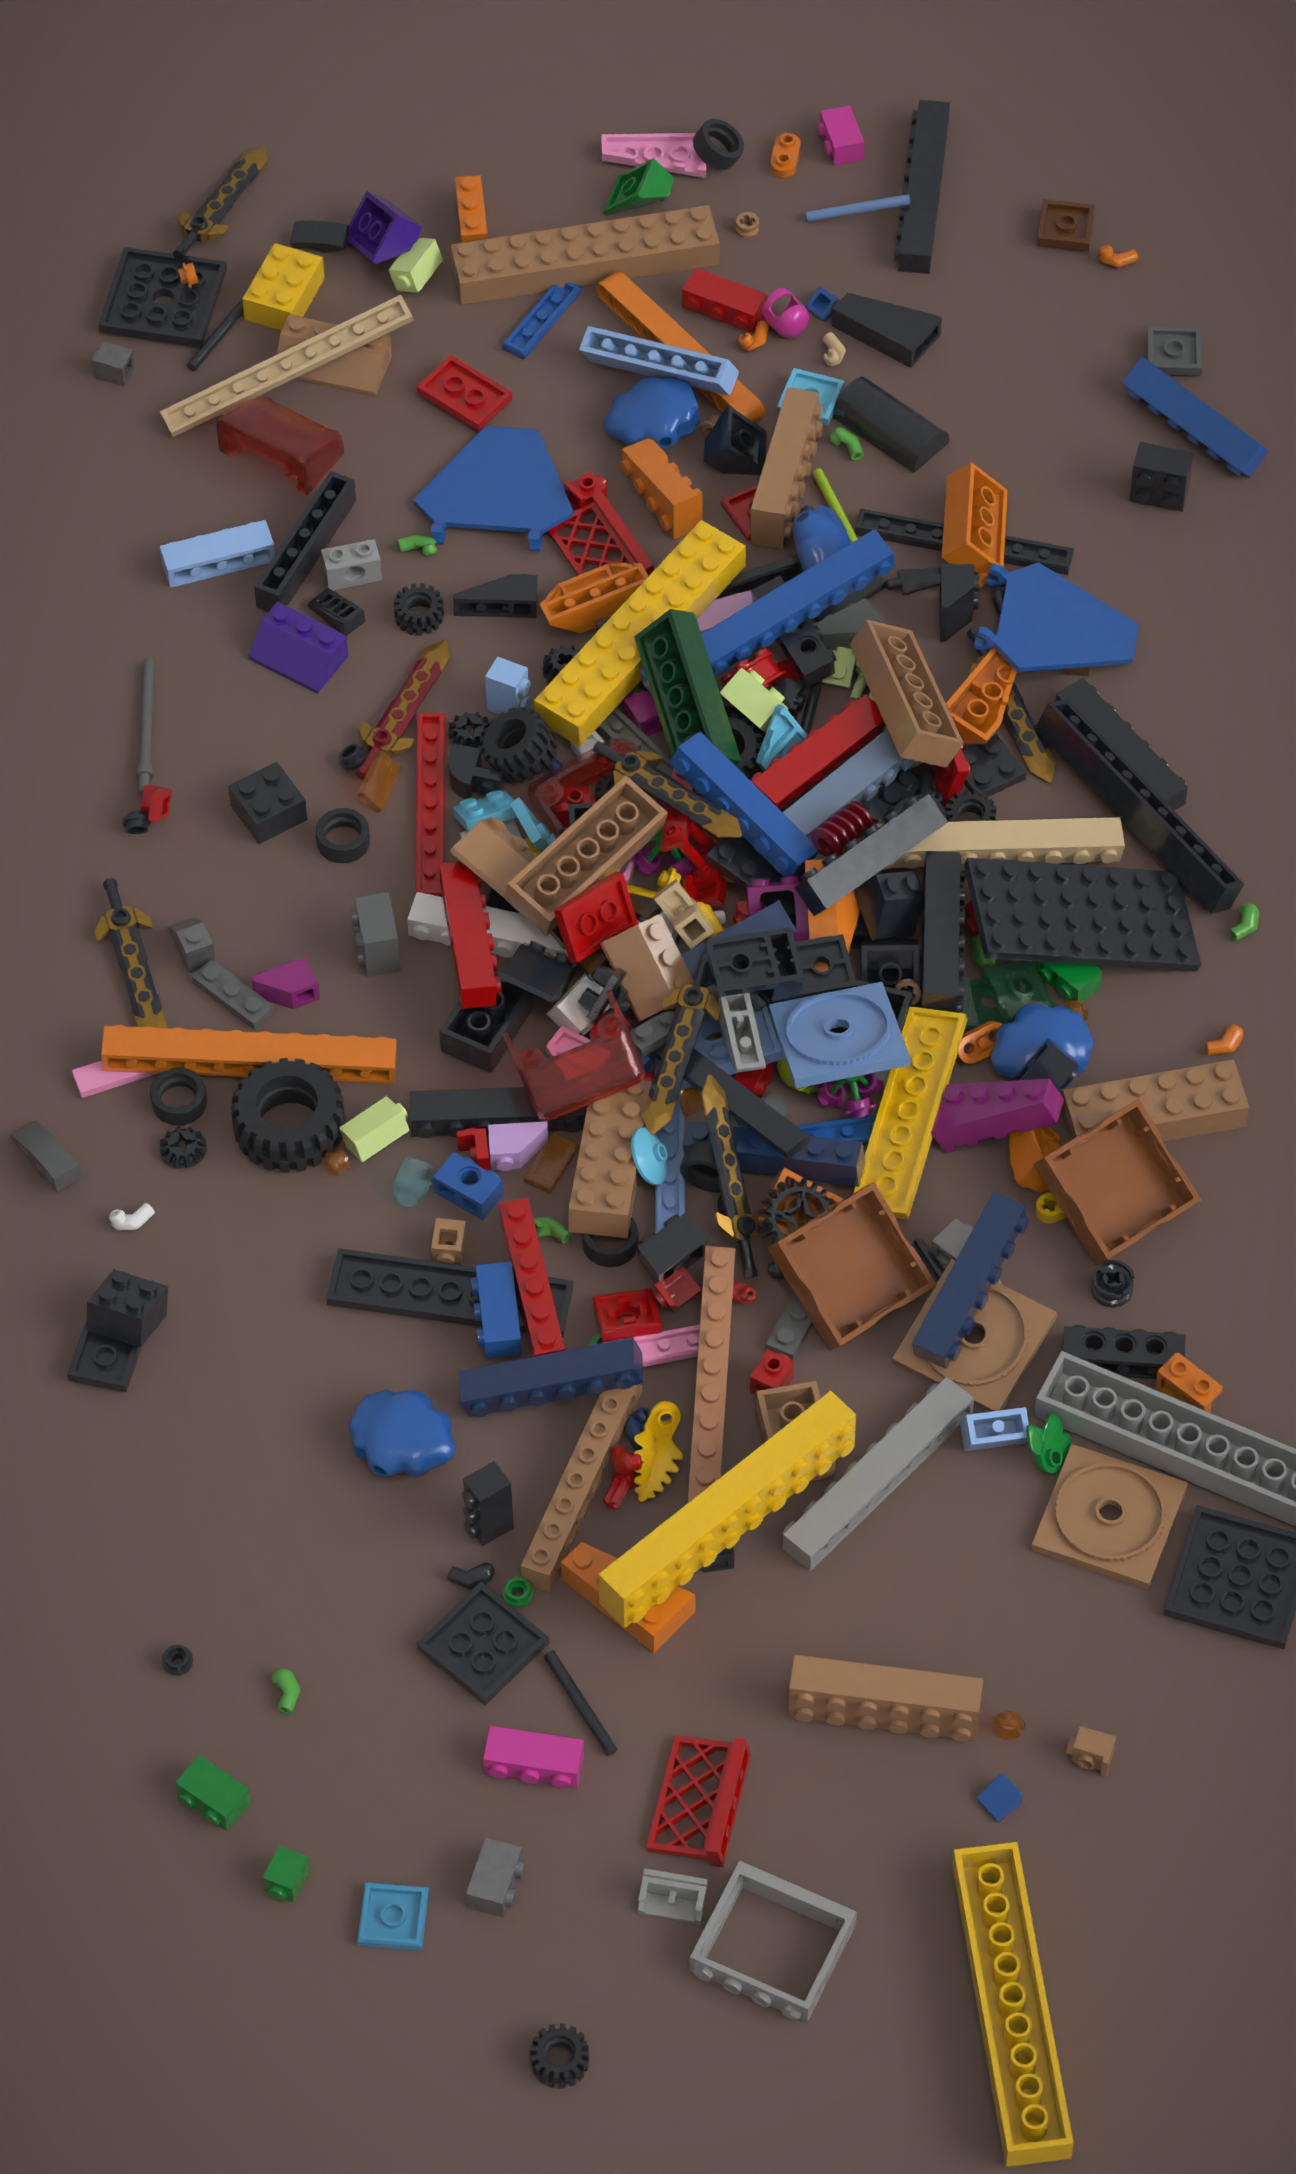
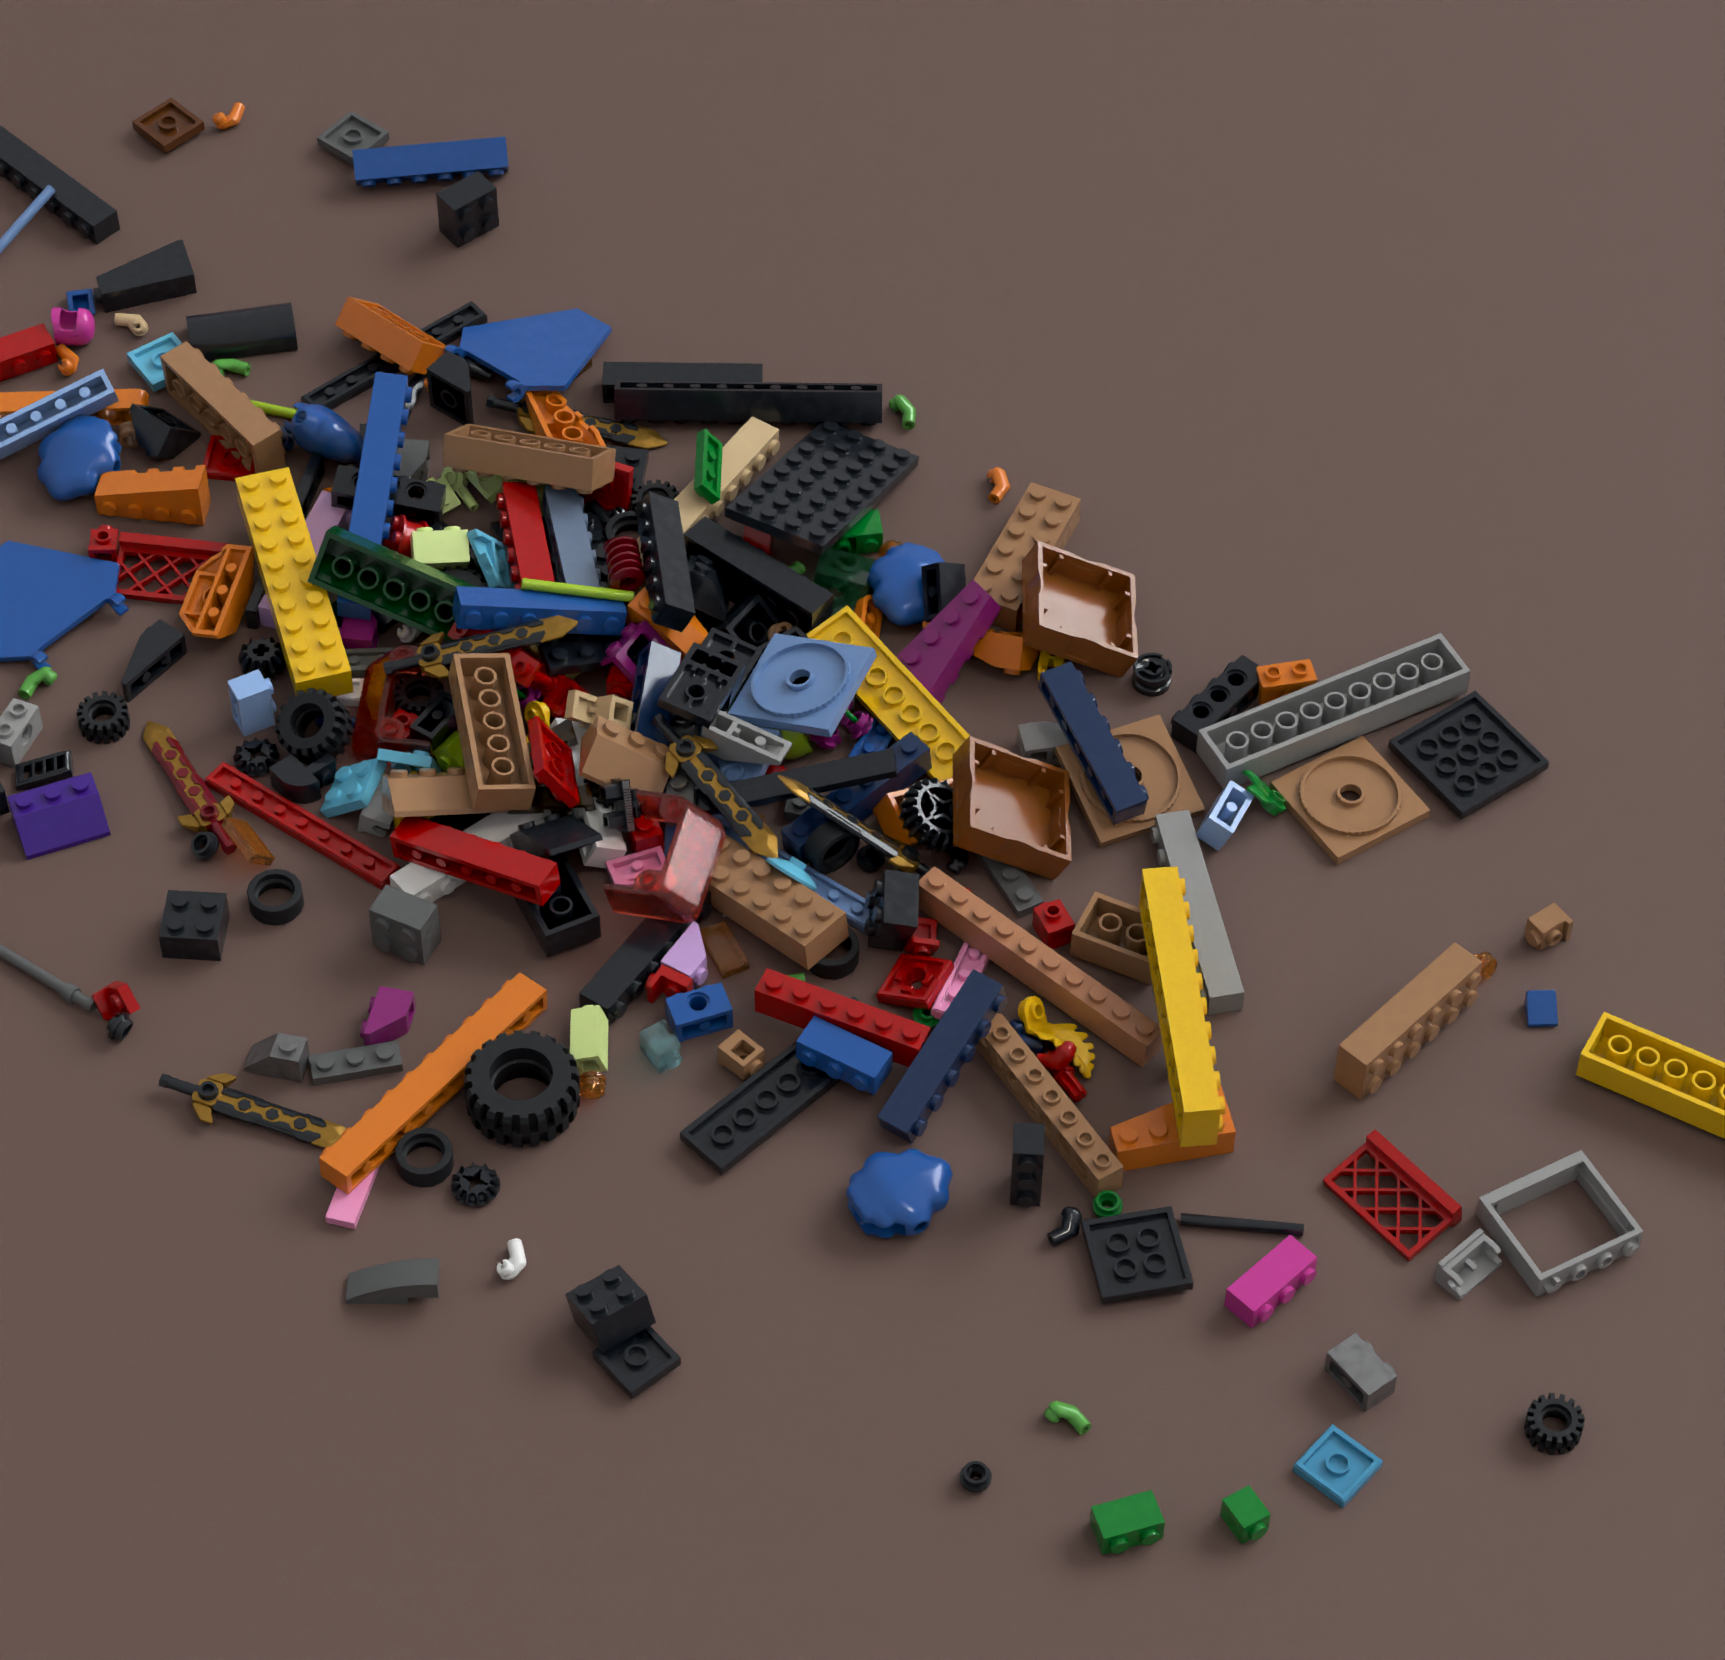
camera: 55 degrees left, 5 degrees down
(784, 815) = (577, 590): none -> lime bar
(1018, 820) = (708, 466): none -> green plate

